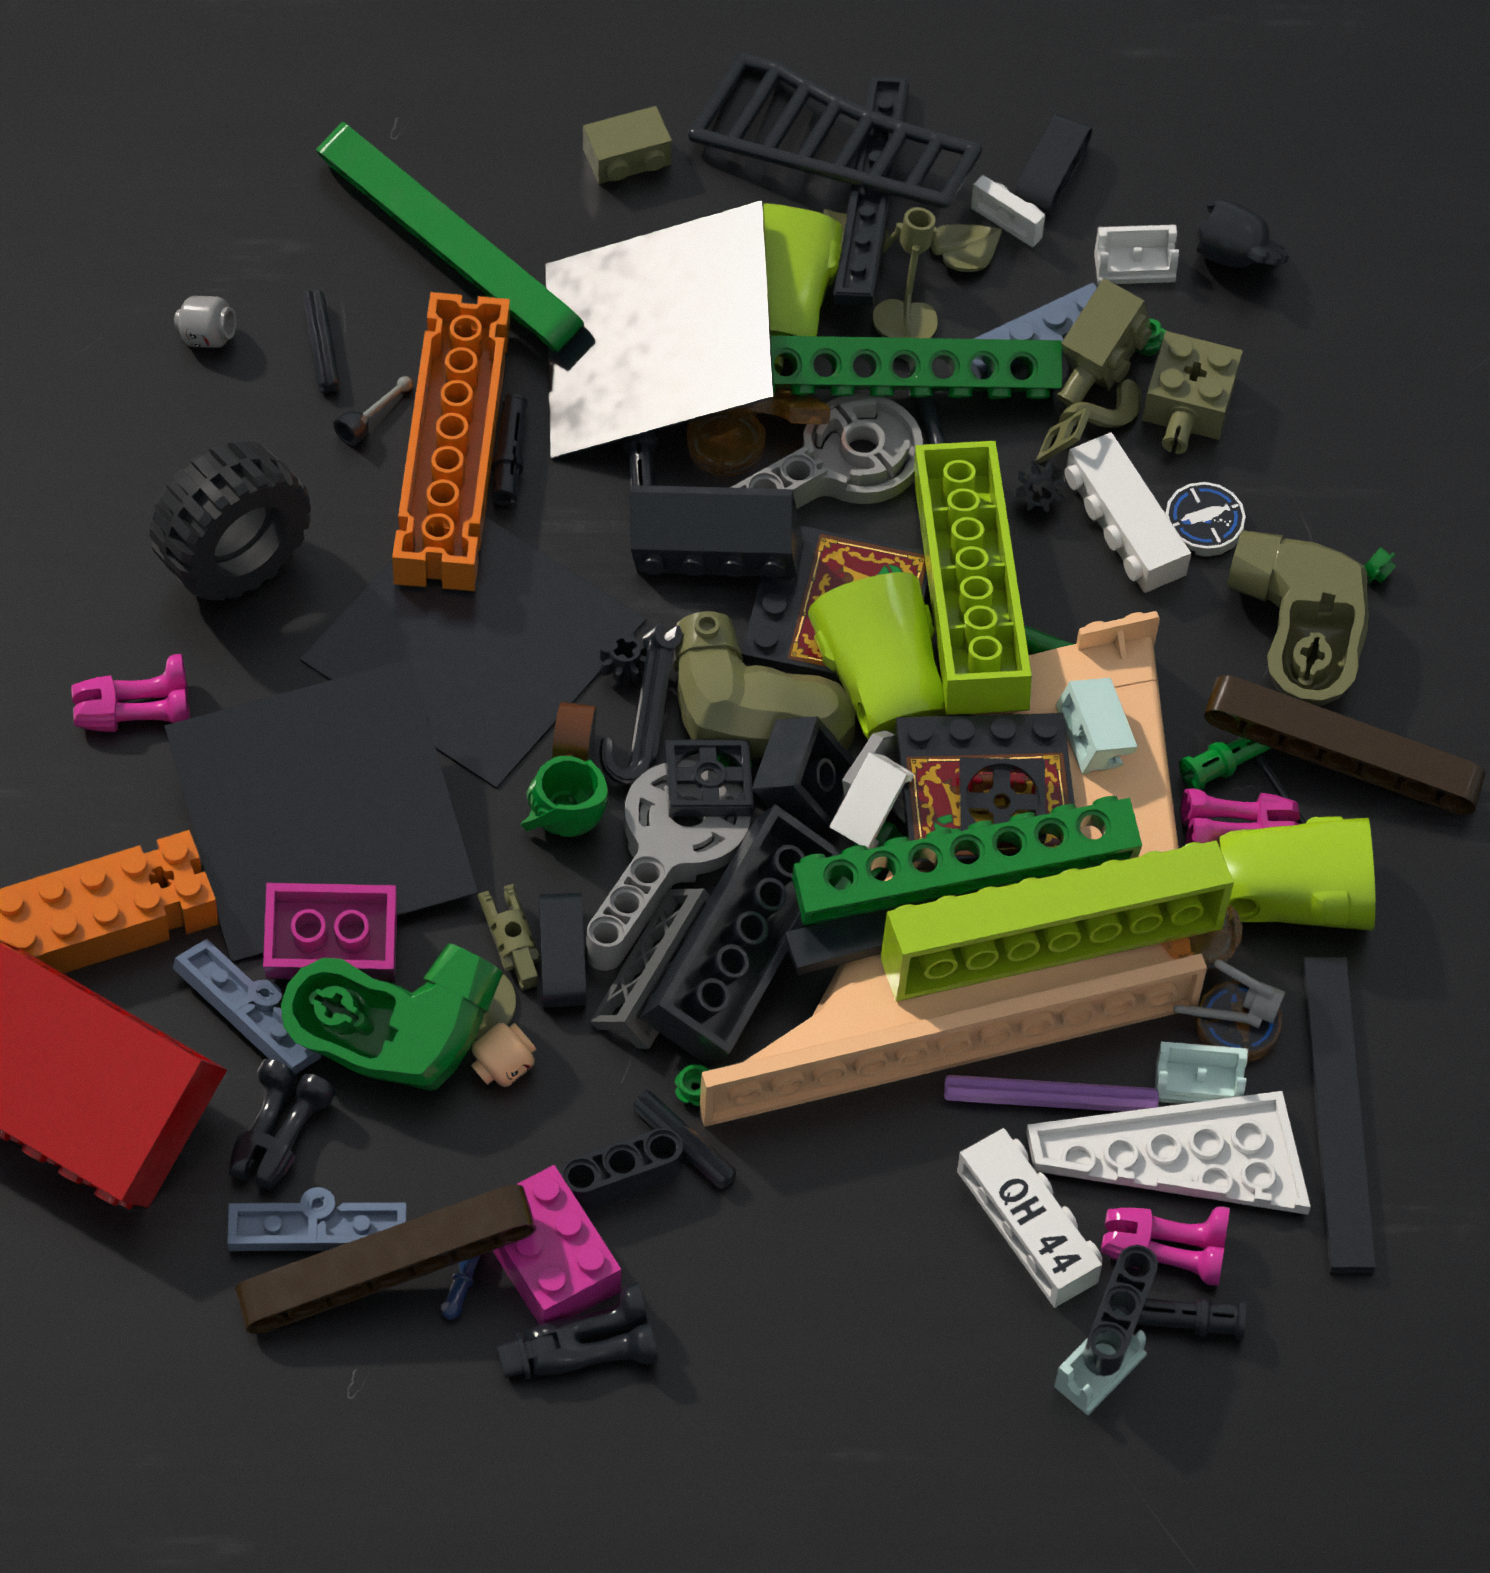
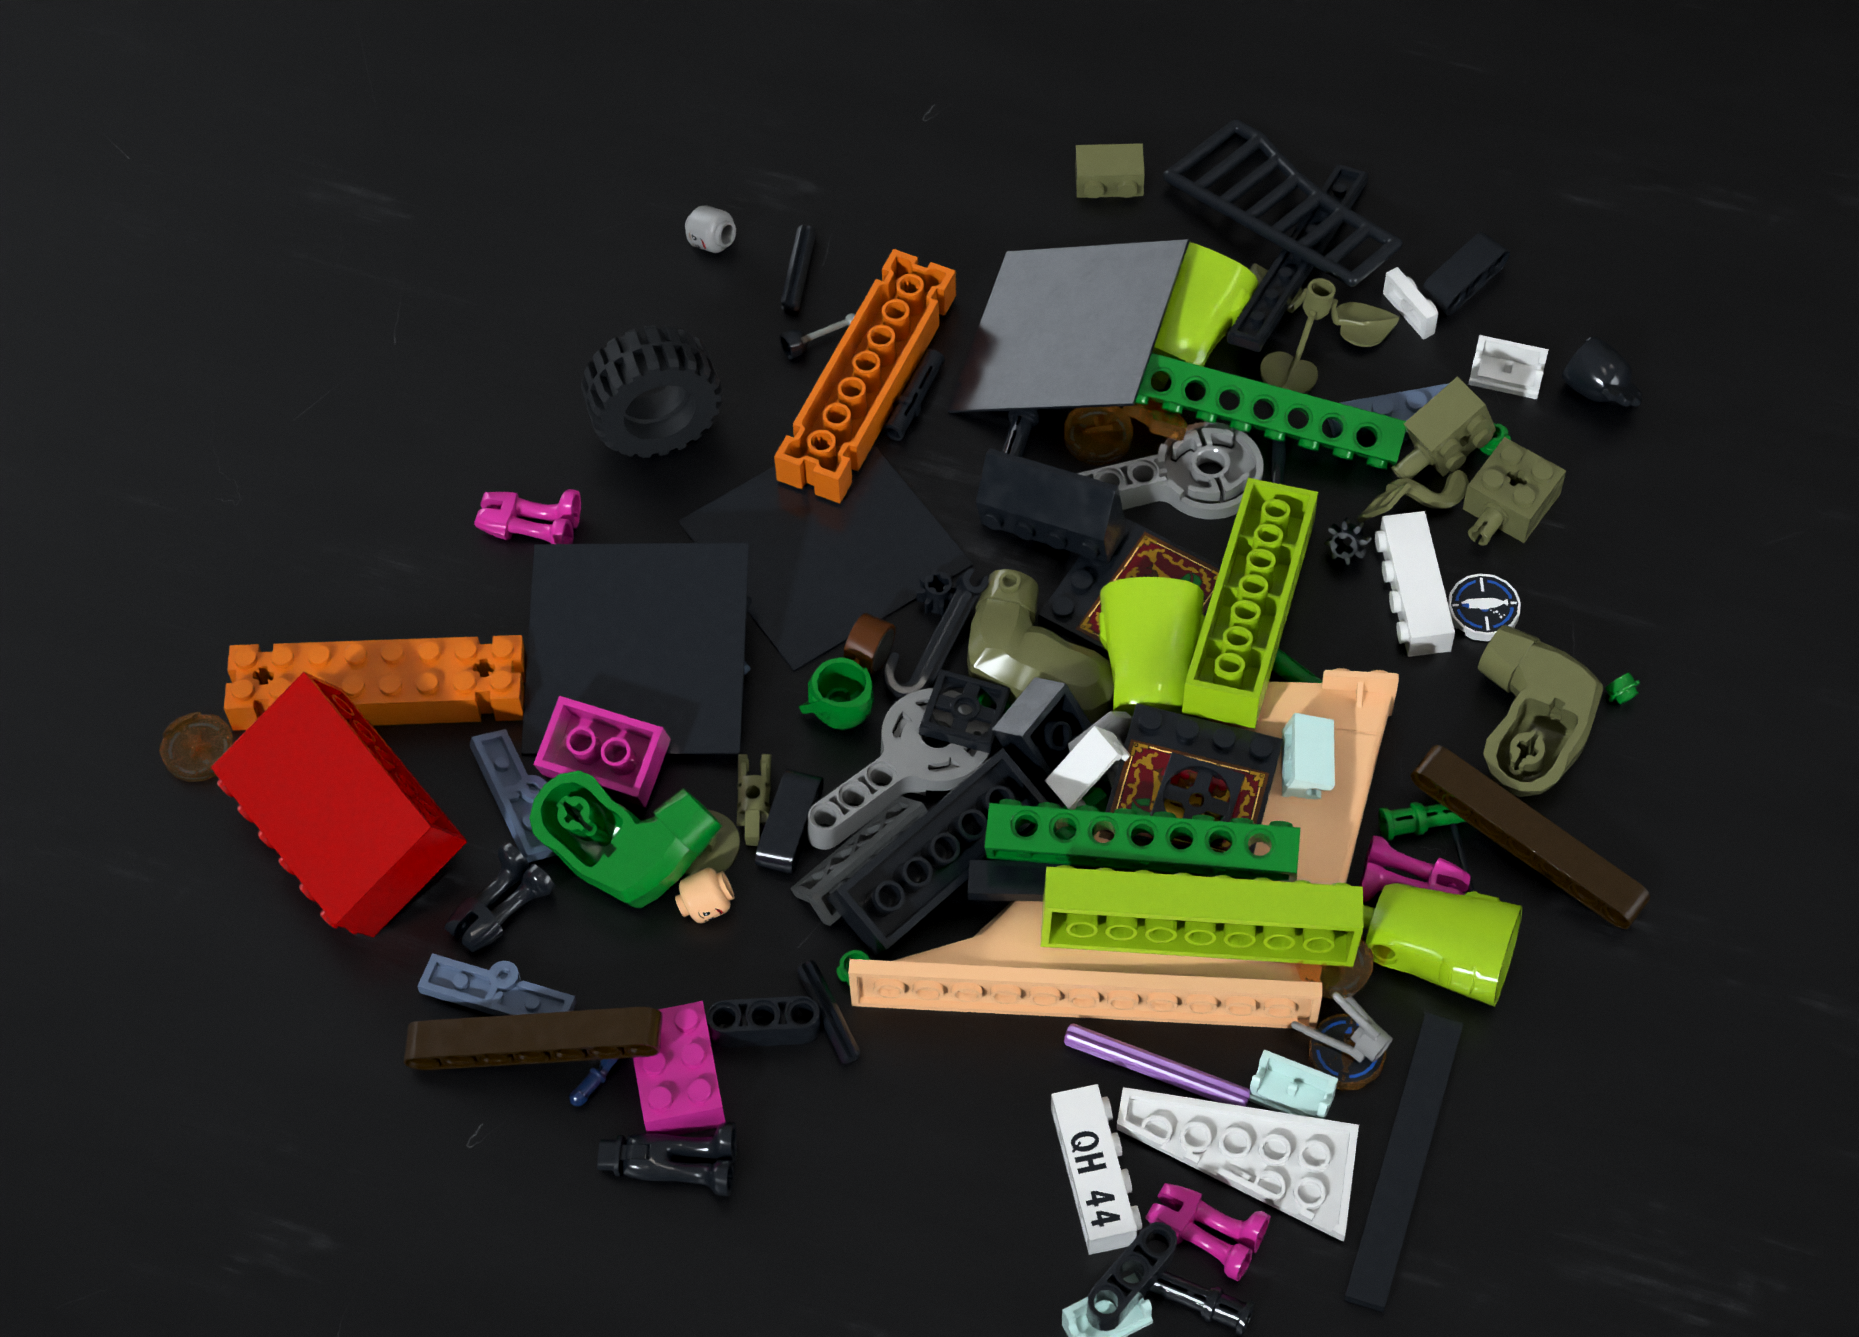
camera: 25 degrees right, 0 degrees up
(449, 236) = (933, 210): green beam -> none

